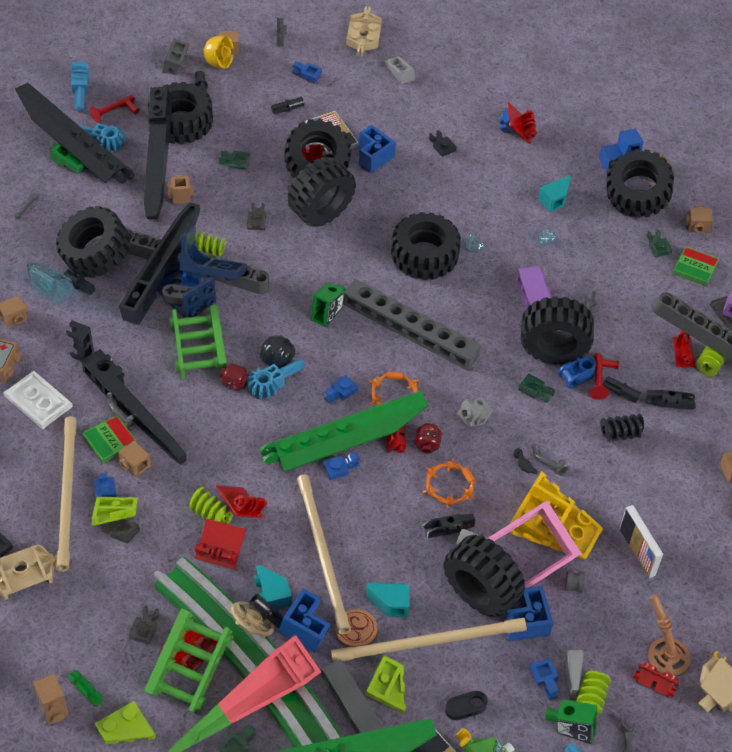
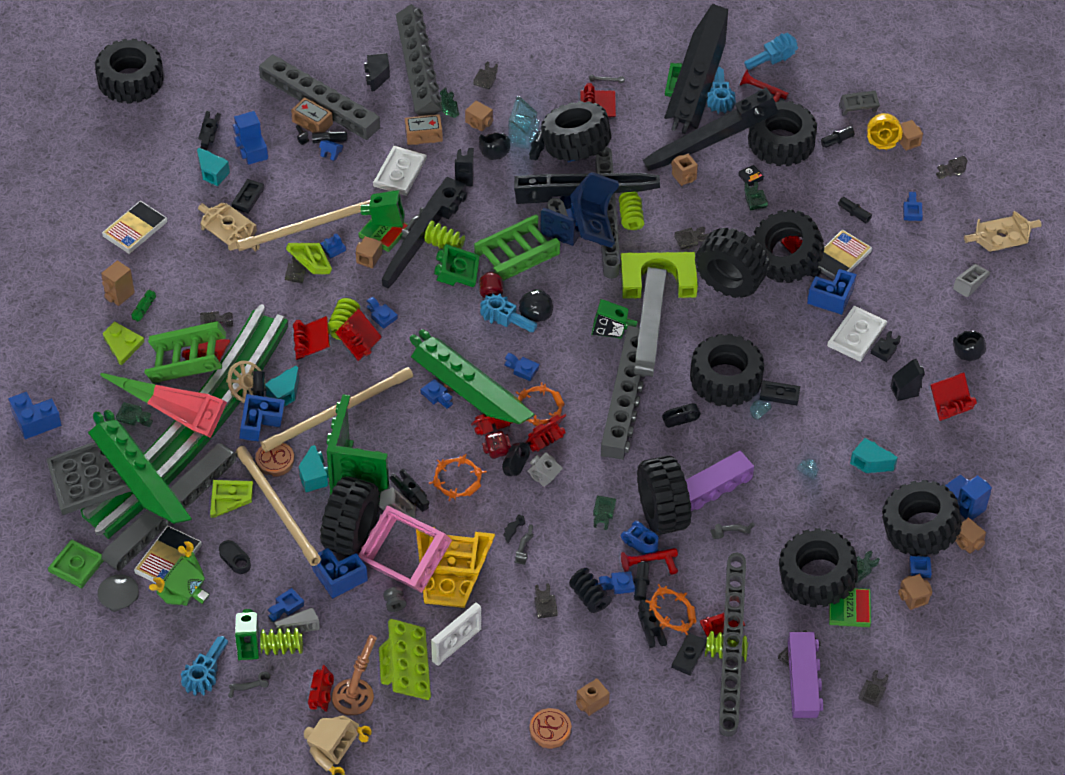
camera: 70 degrees right, 0 degrees up
(49, 221) = (603, 98): none -> red hinge
(61, 311) = (494, 145): none -> black hair
(96, 421) = (385, 209): none -> green torso
(154, 390) = (439, 237): none -> lime piece
(195, 394) = (456, 266): none -> green plate
(208, 154) = (750, 175): none -> black tile
(216, 475) = (381, 314): none -> blue plate
(286, 235) = (679, 264): none -> lime arch
(353, 272) = (650, 322): none -> beam
(405, 557) = (352, 462): none -> green bracket
(420, 155) = (857, 333): none -> white tile
(434, 394) = (544, 434): none -> red hinge
(450, 430) = (513, 461): none -> black piece
(455, 296) = (681, 415): none -> black piece
(464, 221) = (779, 392): none -> black plate
(472, 93) = (969, 345): none -> black hair
(493, 140) = (908, 381): none -> black slope
(616, 405) = (620, 582): none -> blue plate
(620, 466) = (545, 603): none -> clear smoke plate
(638, 594) = (405, 660): none -> lime bracket
(665, 245) = (818, 546): none -> black tyre
(667, 369) = (664, 621): none -> orange piece
(678, 207) = (920, 565): none -> blue tile
(707, 385) = (689, 654): none -> black plate

